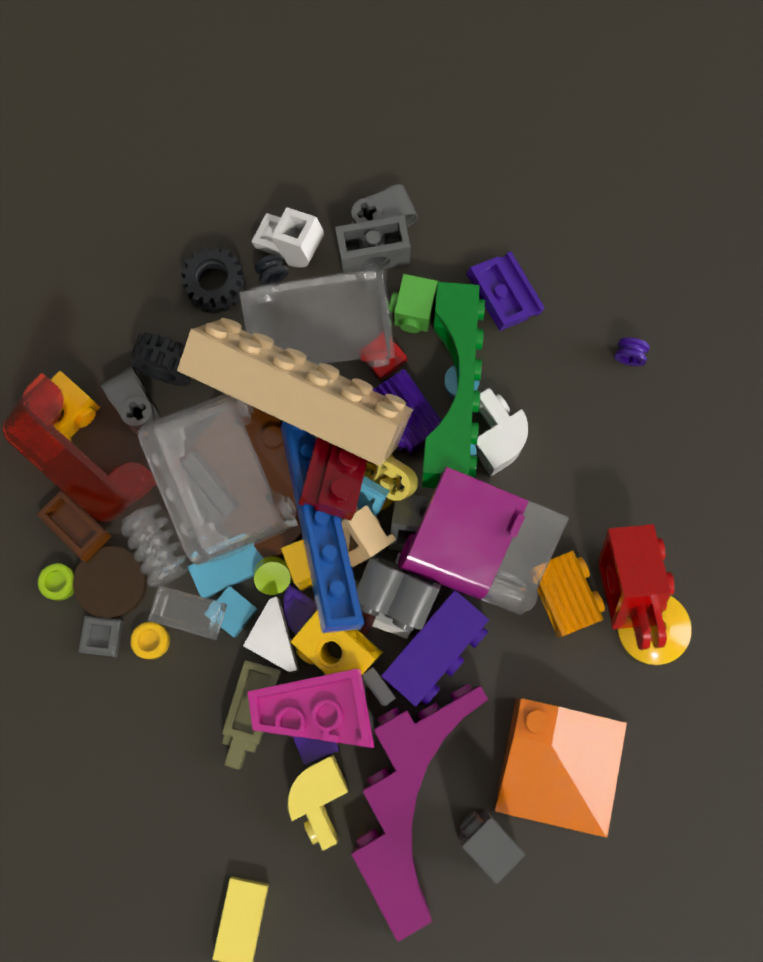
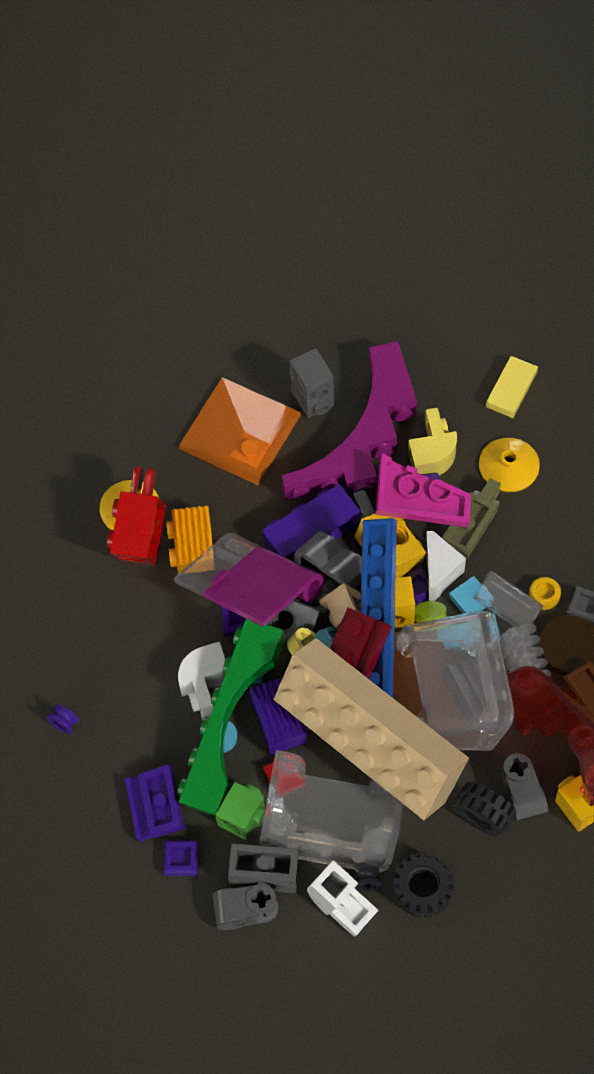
camera: 165 degrees left, 15 degrees down
(242, 799) = (512, 475): none -> yellow dish
(461, 249) = (181, 858): none -> dark purple tile

